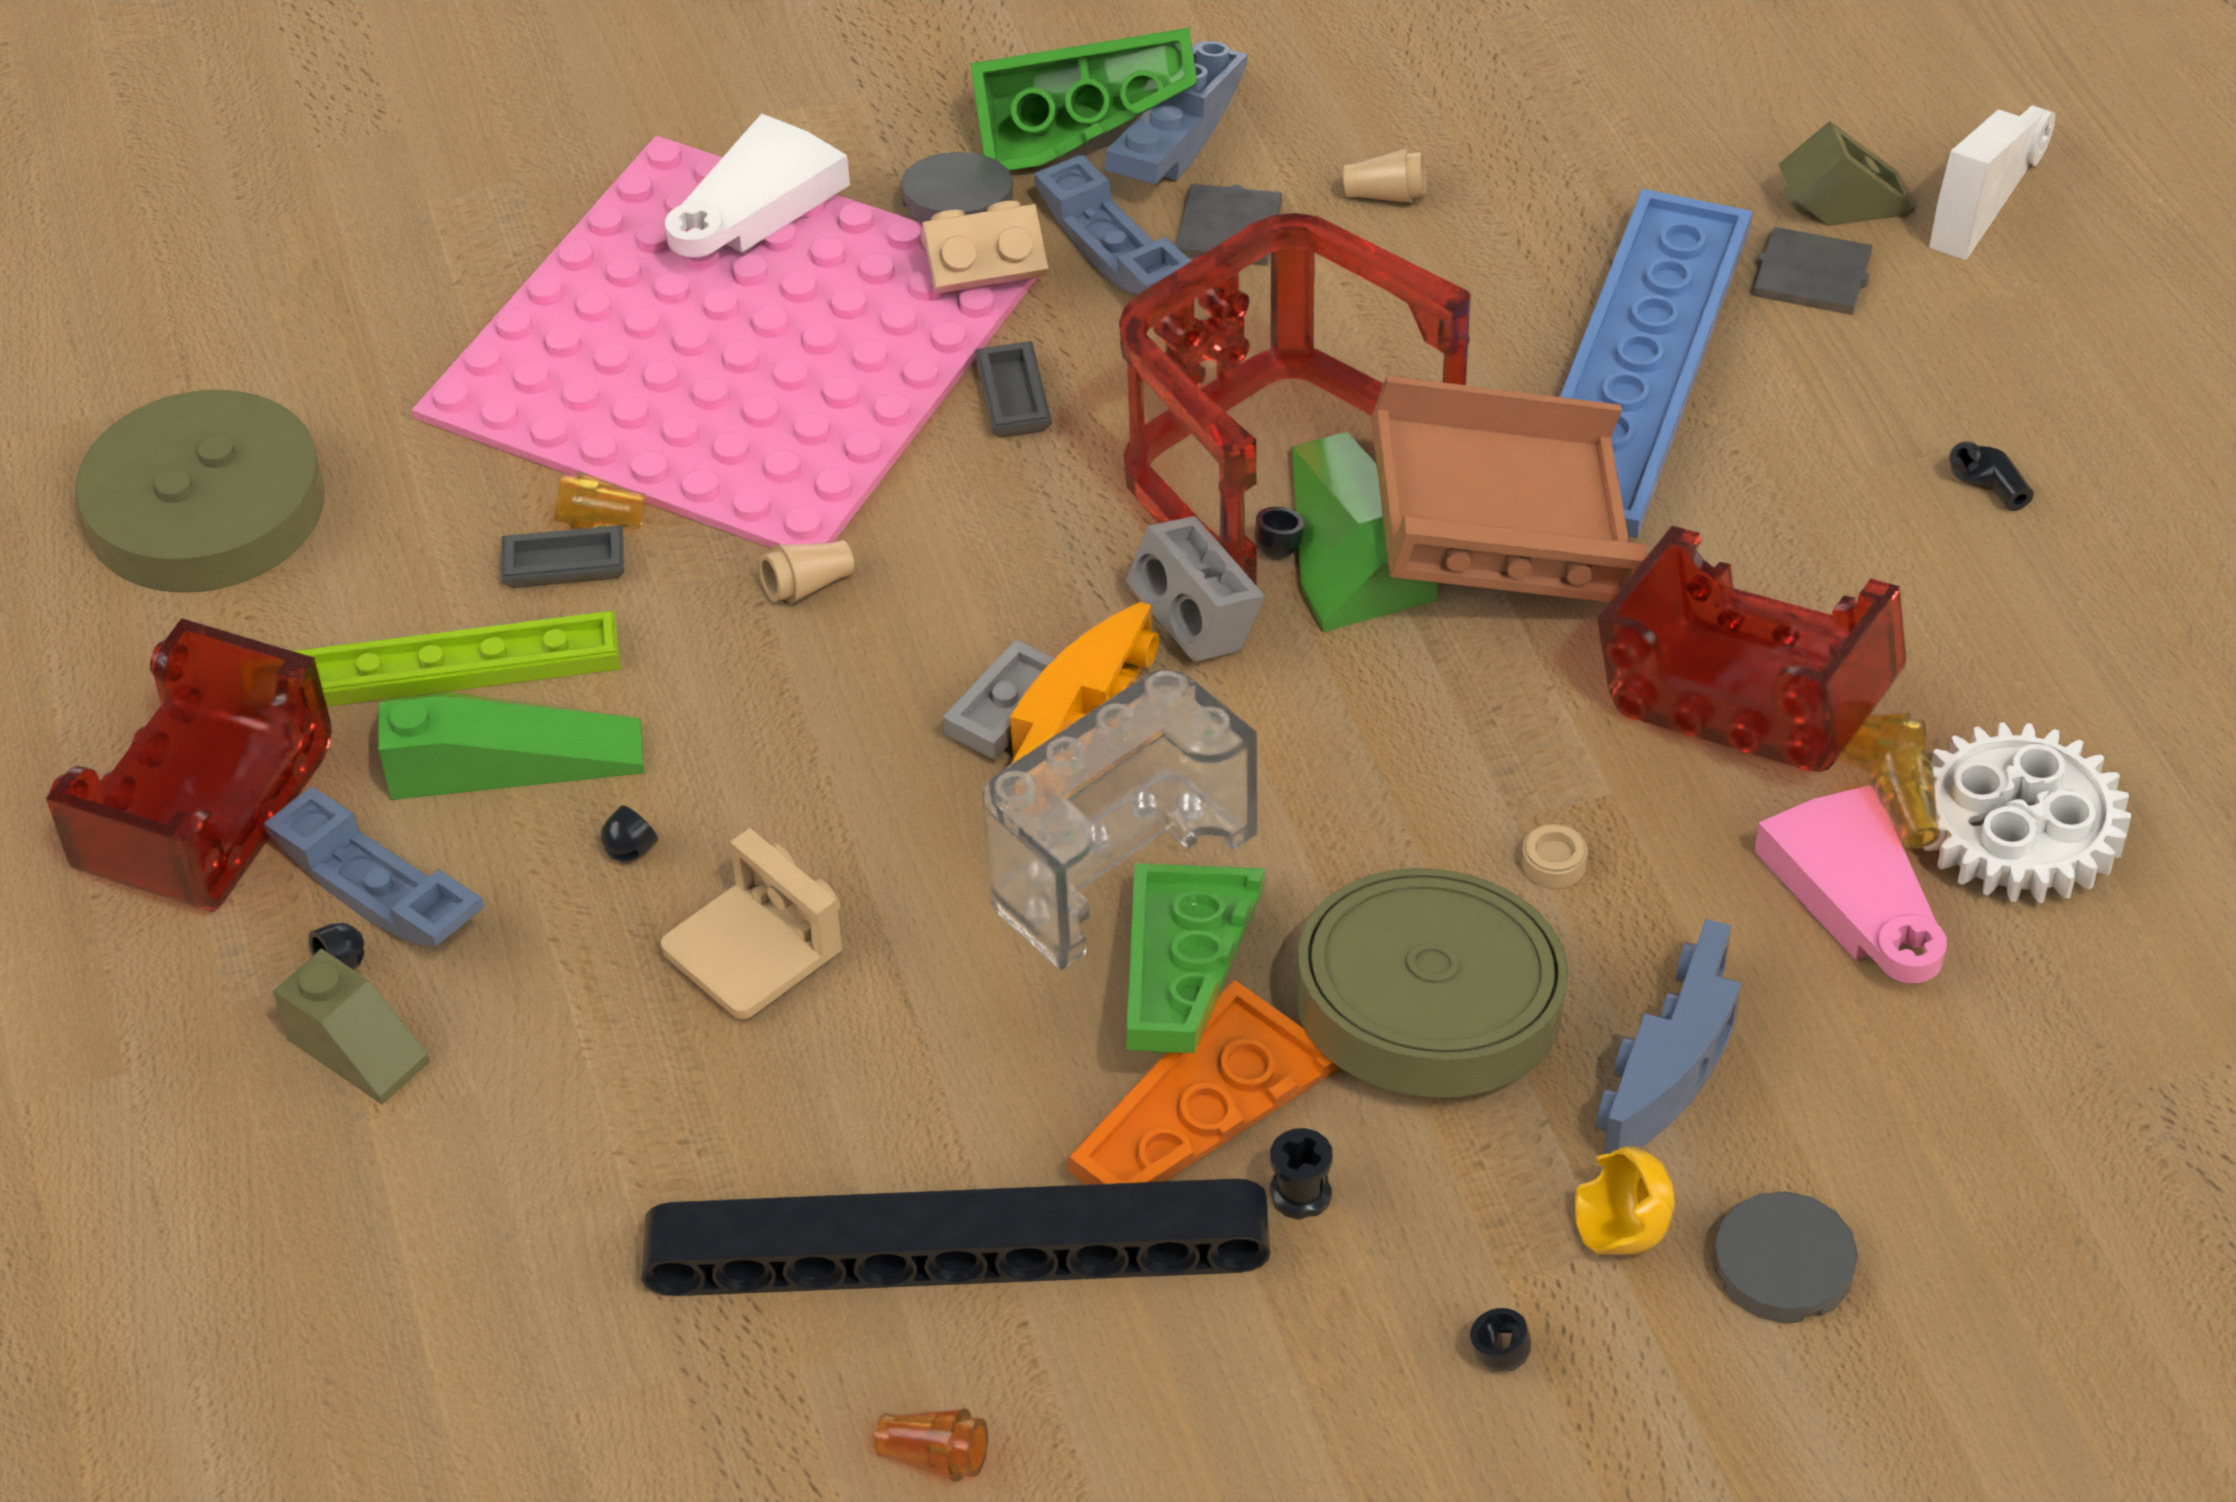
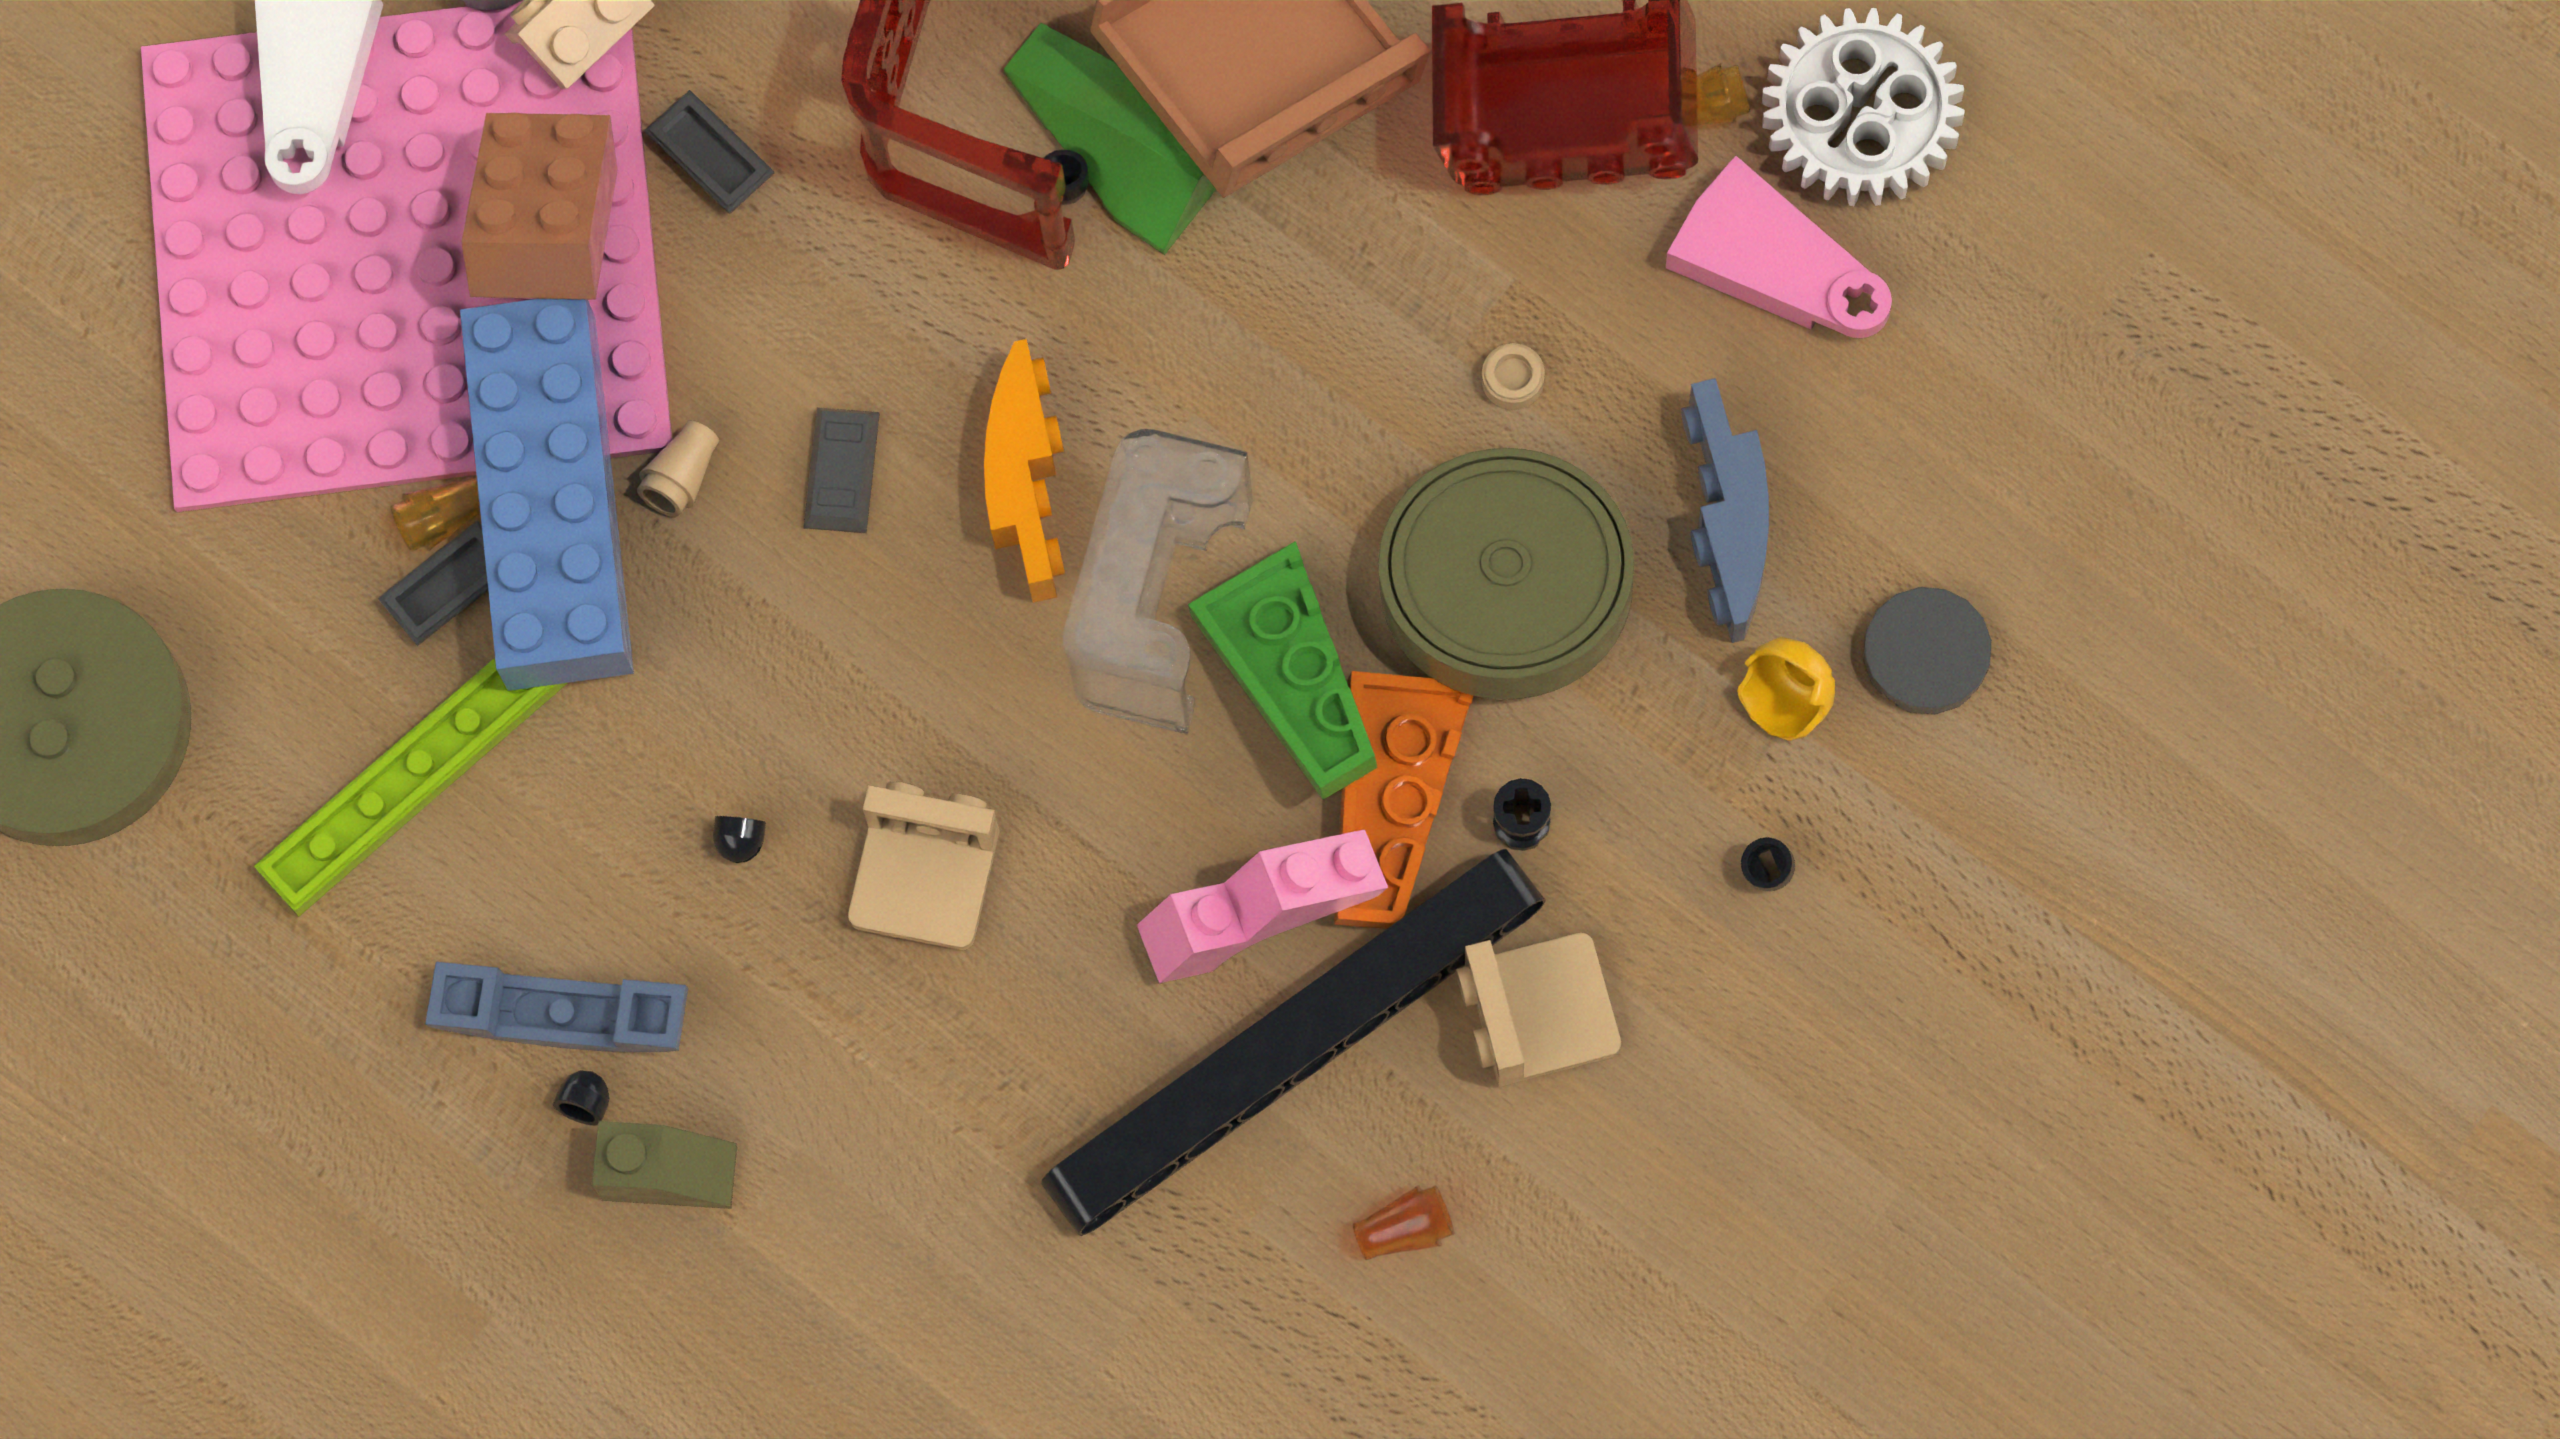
camera: 30 degrees left, 25 degrees up
(213, 764) = (330, 1013): clear red windscreen -> none
(494, 743) = (538, 814): bright green wedge -> none
(681, 518) = (546, 492): none -> medium blue brick
(839, 323) = (540, 206): none -> nougat brick
(934, 640) = (841, 470): none -> dark grey tile
(984, 711) = (954, 502): light grey plate -> none
(1024, 1096) = (1266, 896): none -> bright pink arch
(1191, 1333) = (1539, 1007): none -> tan bracket
(1194, 588) = (1045, 293): light grey brick -> none
(1907, 792) = (1776, 159): clear yellow cone -> none

